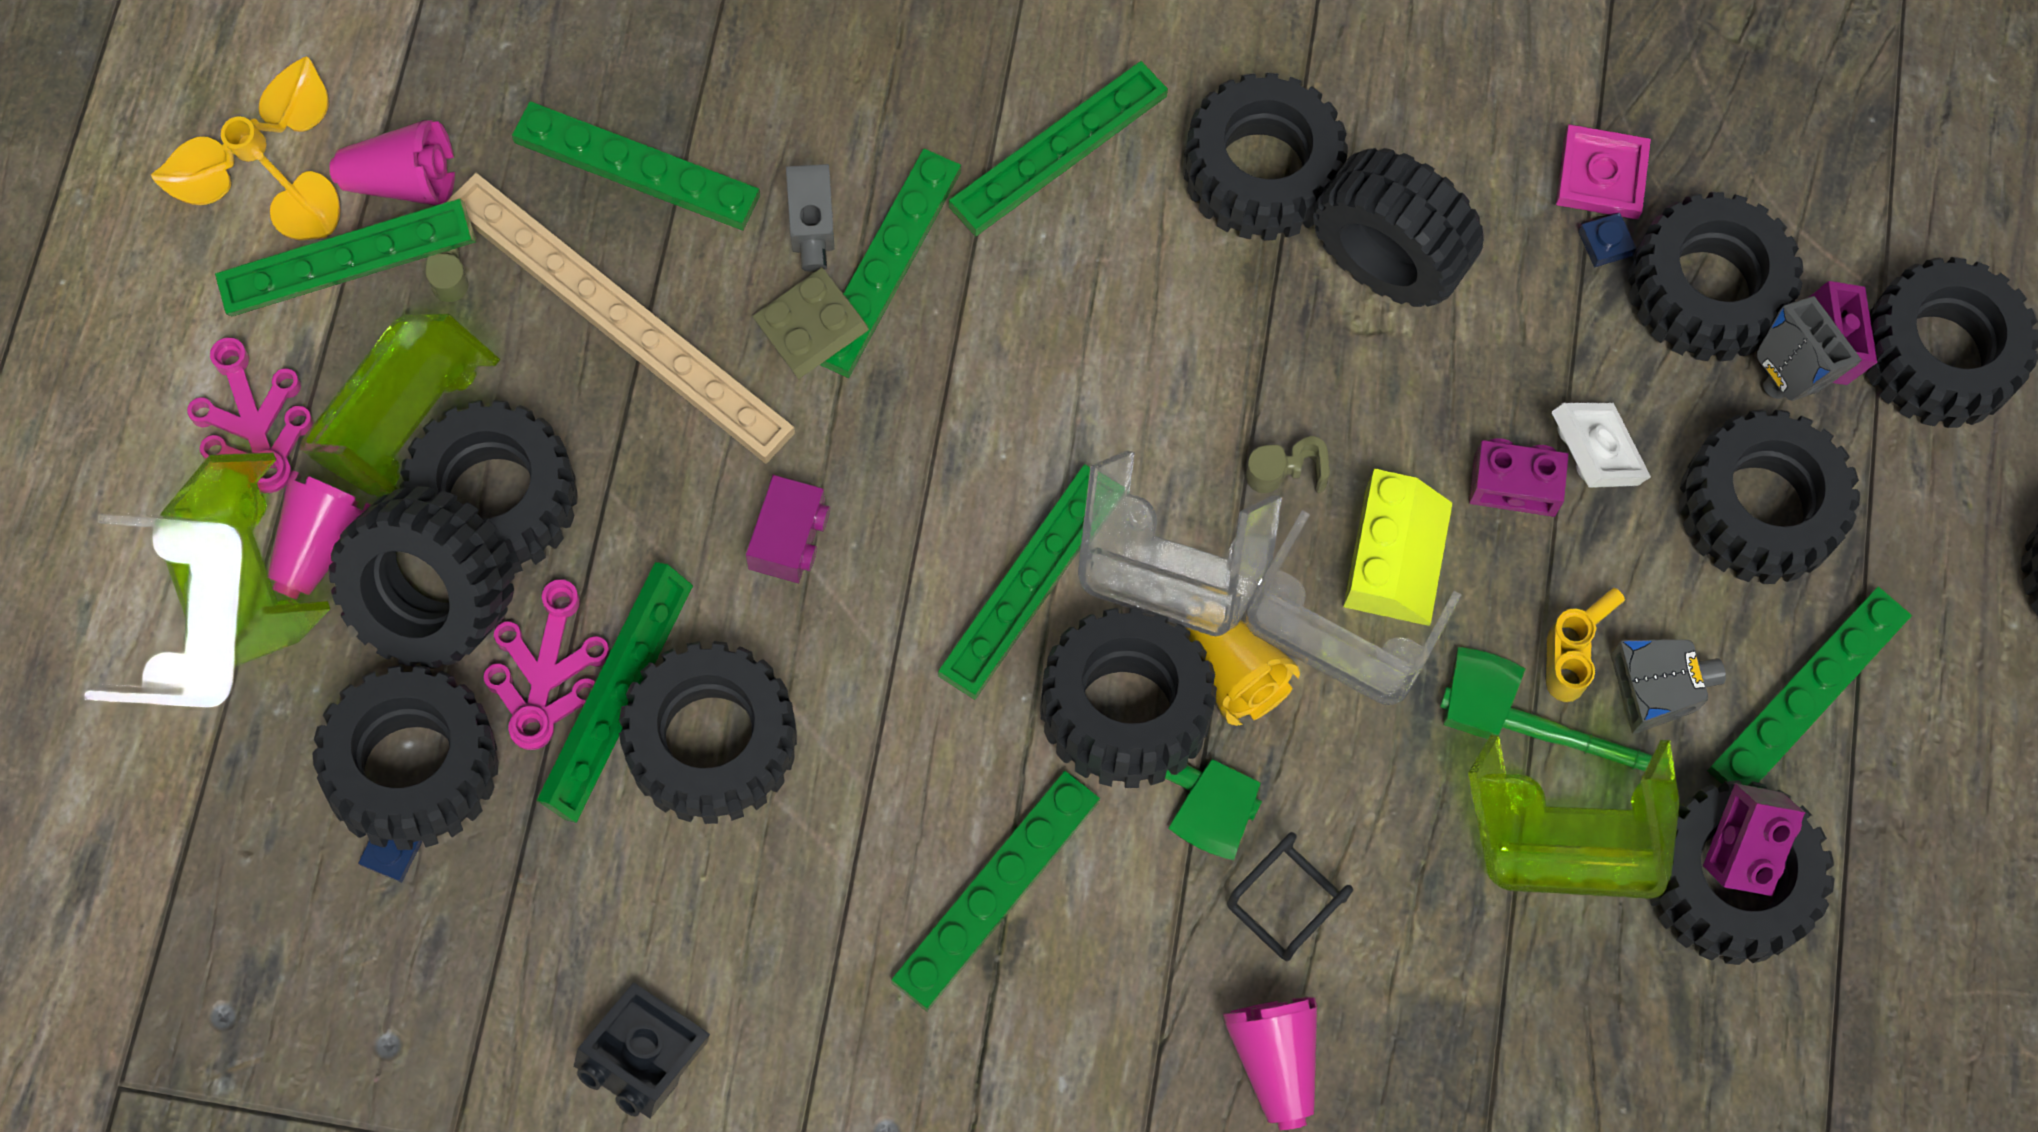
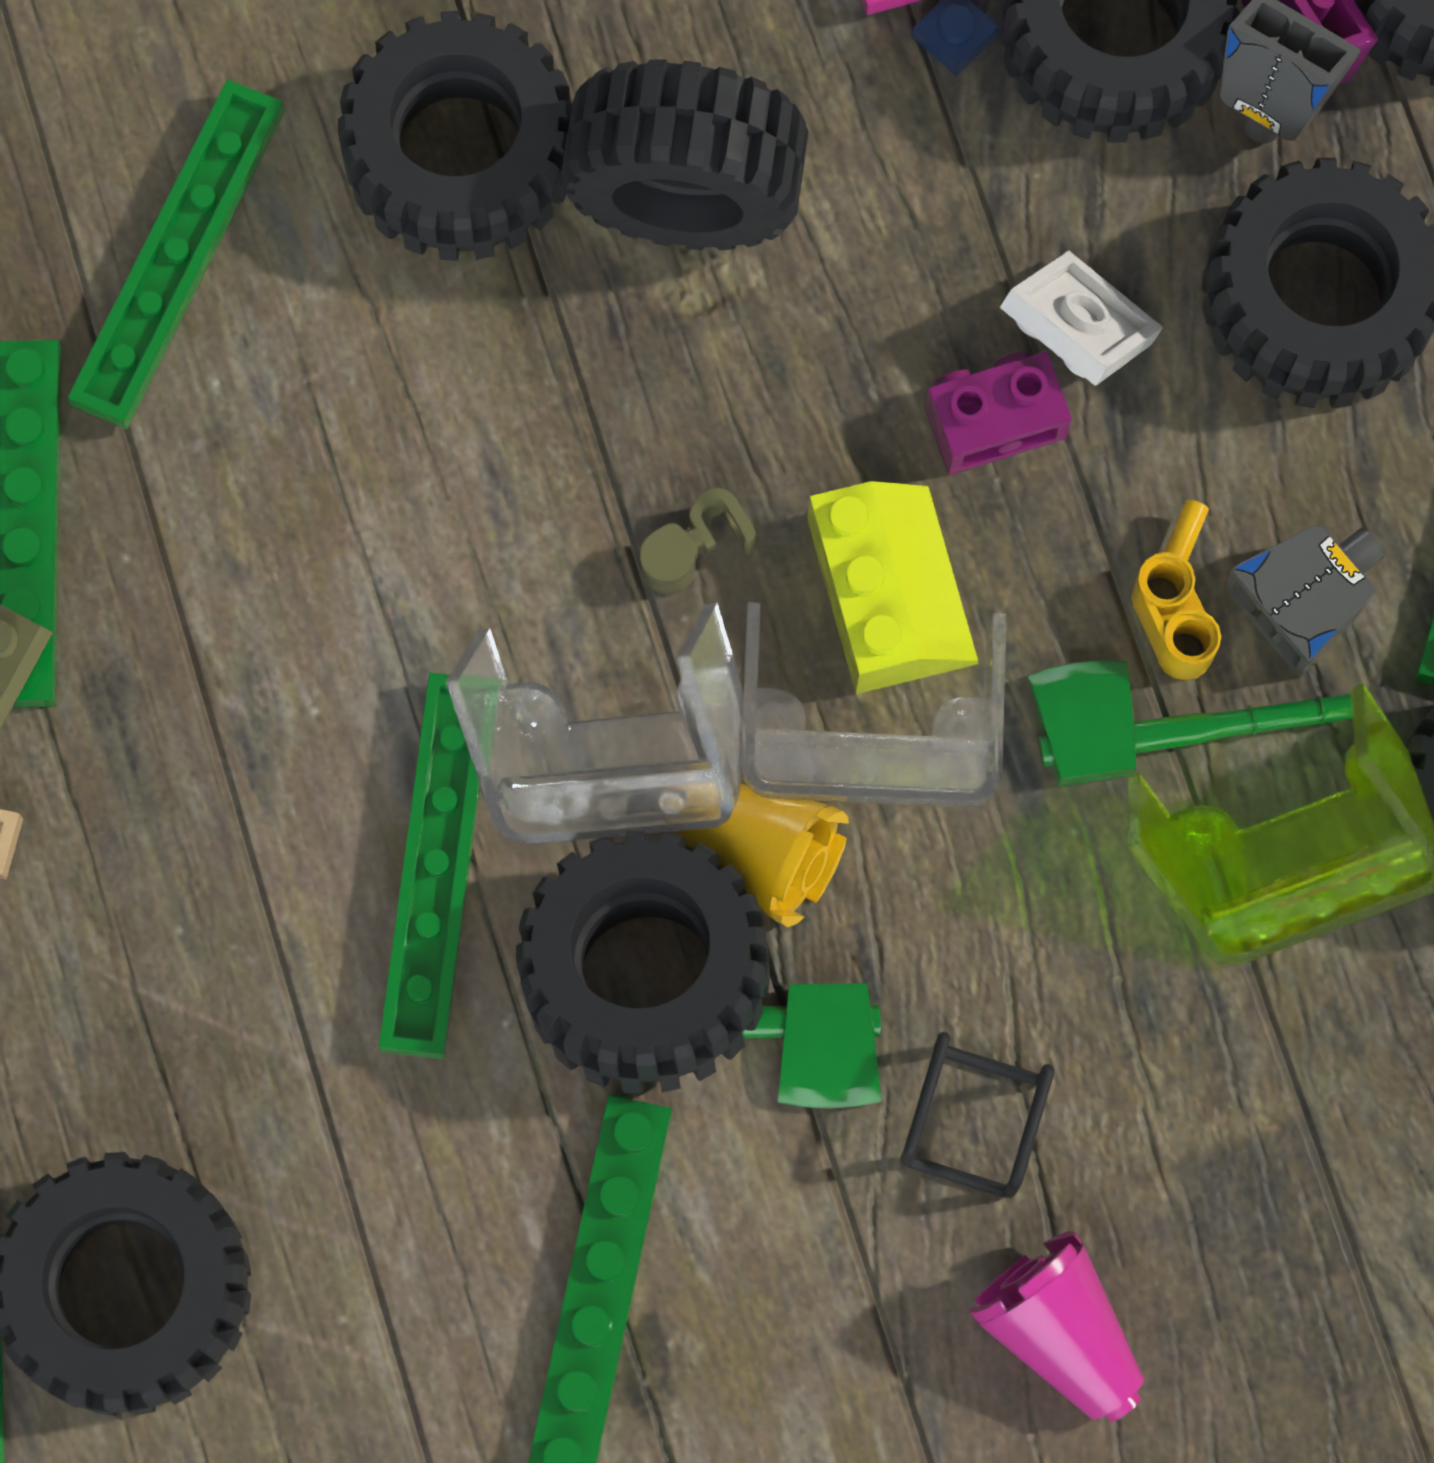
camera: 25 degrees left, 5 degrees up
(787, 529) = (83, 958): magenta brick -> none

